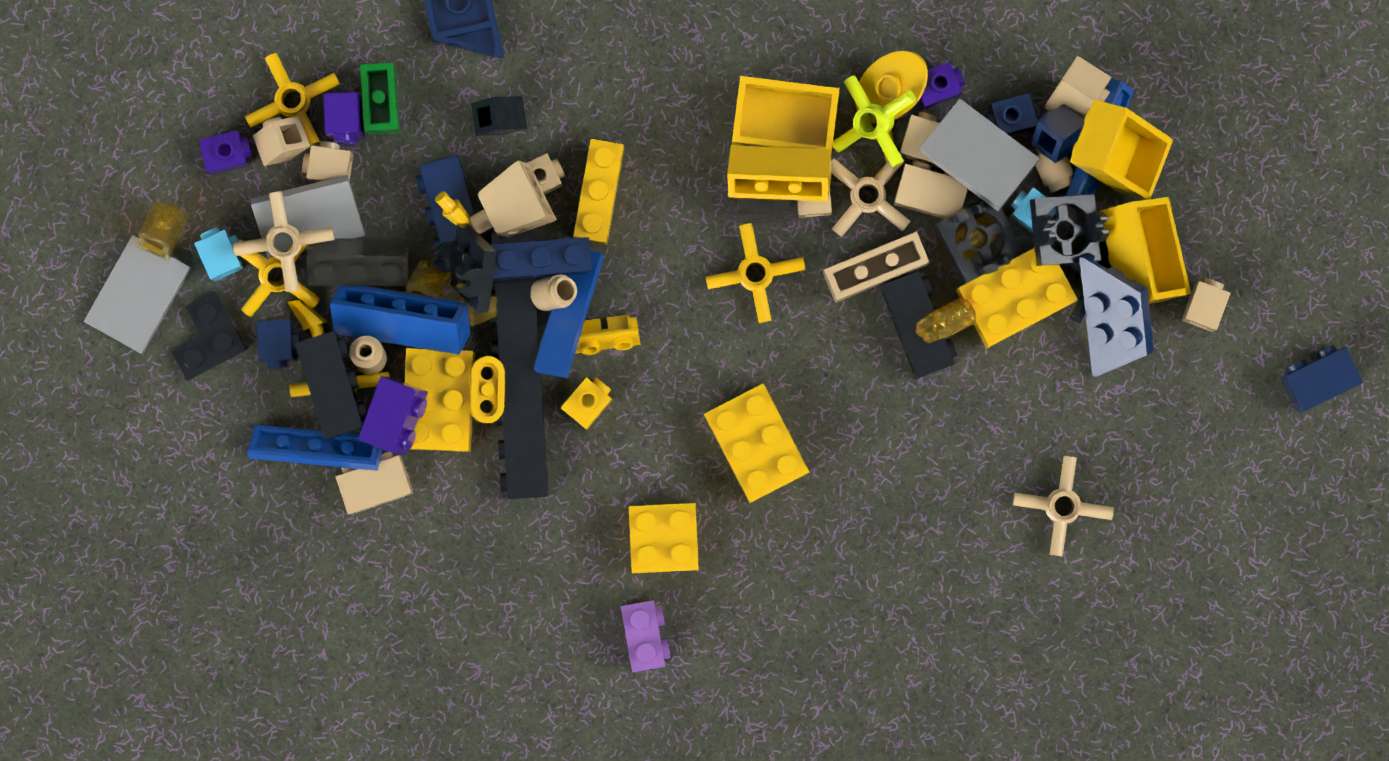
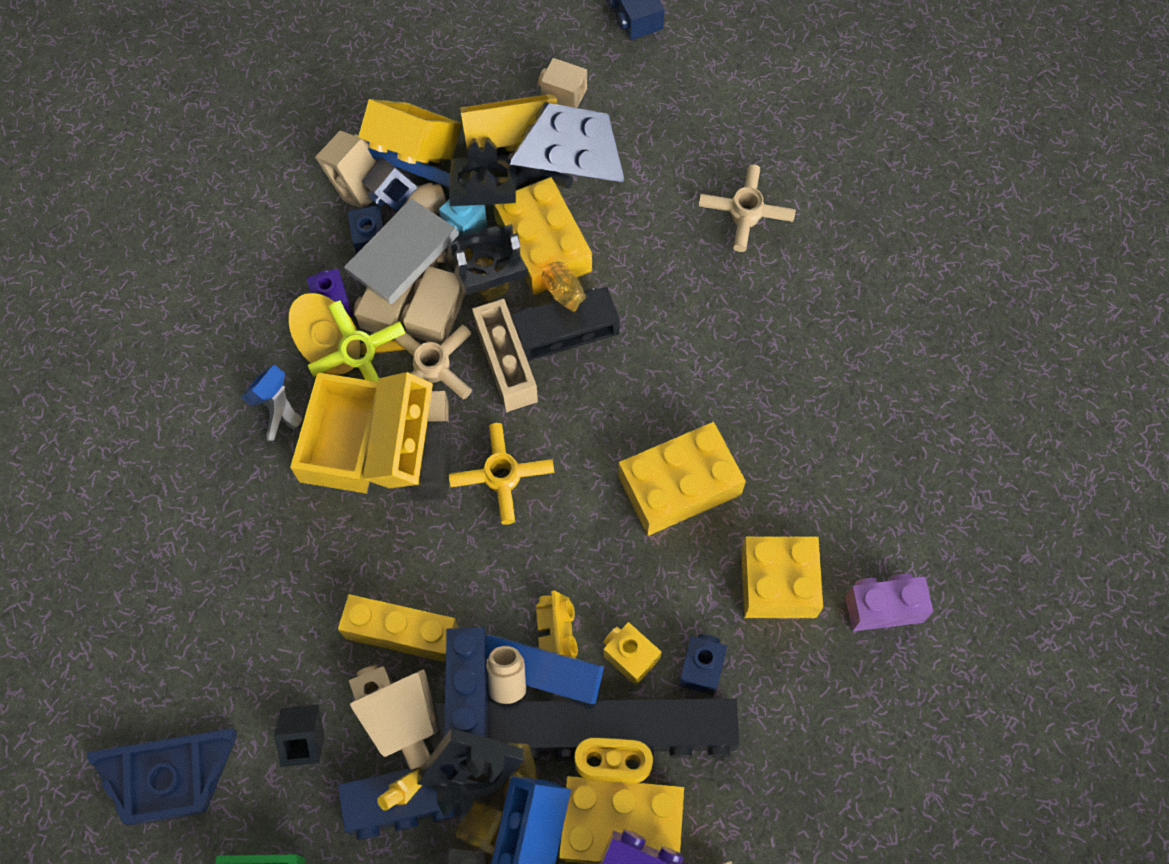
camera: 85 degrees left, 20 degrees down
(581, 467) = (703, 664): none -> dark blue brick
(822, 41) = (270, 391): none -> piece

